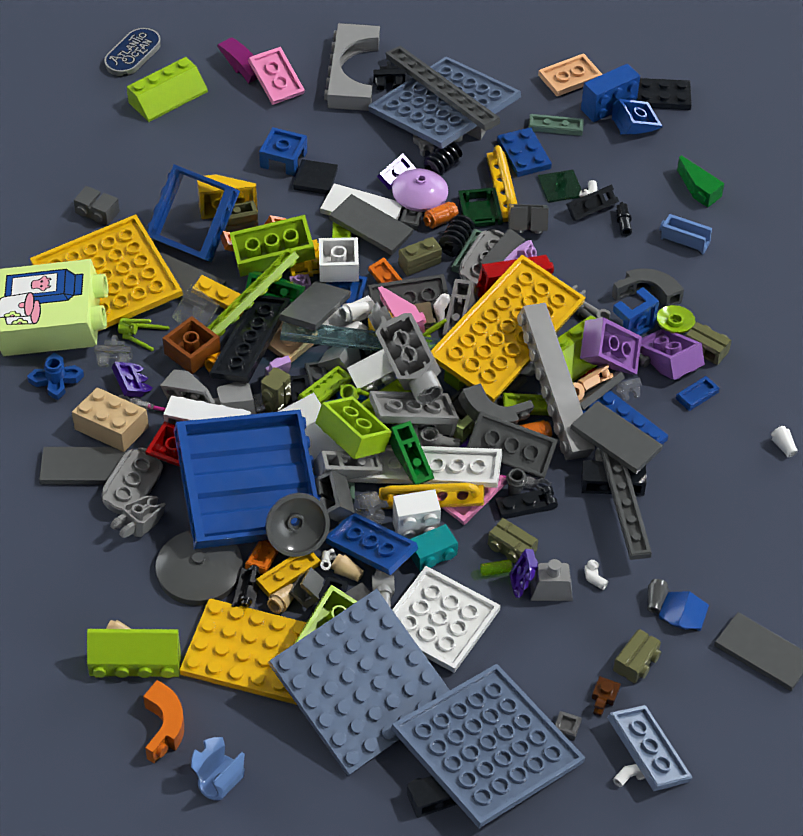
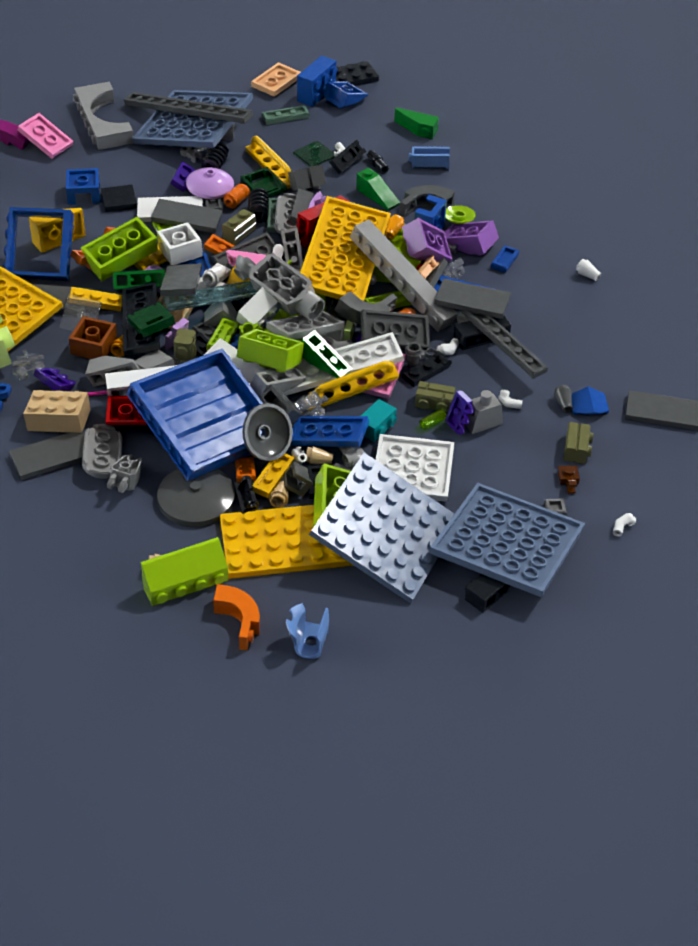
camera: 25 degrees left, 5 degrees down
(130, 326) = (28, 342): lime plant -> none
(242, 217) = (81, 235): olive brick -> none
(251, 341) = (142, 319): none -> dark green container
(257, 288) = (126, 281): lime plate -> none
(388, 74) = (136, 113): black hips -> none
(416, 513) = (352, 397): white brick -> none
(524, 152) = (274, 137): blue plate -> none
(565, 487) = (448, 349): none -> white arm
(579, 315) = (394, 226): none -> light orange cone
(600, 256) = (376, 189): none -> green slope
(649, 748) = (626, 500): sand blue tile -> none
(714, 345) = (500, 220): olive brick -> none

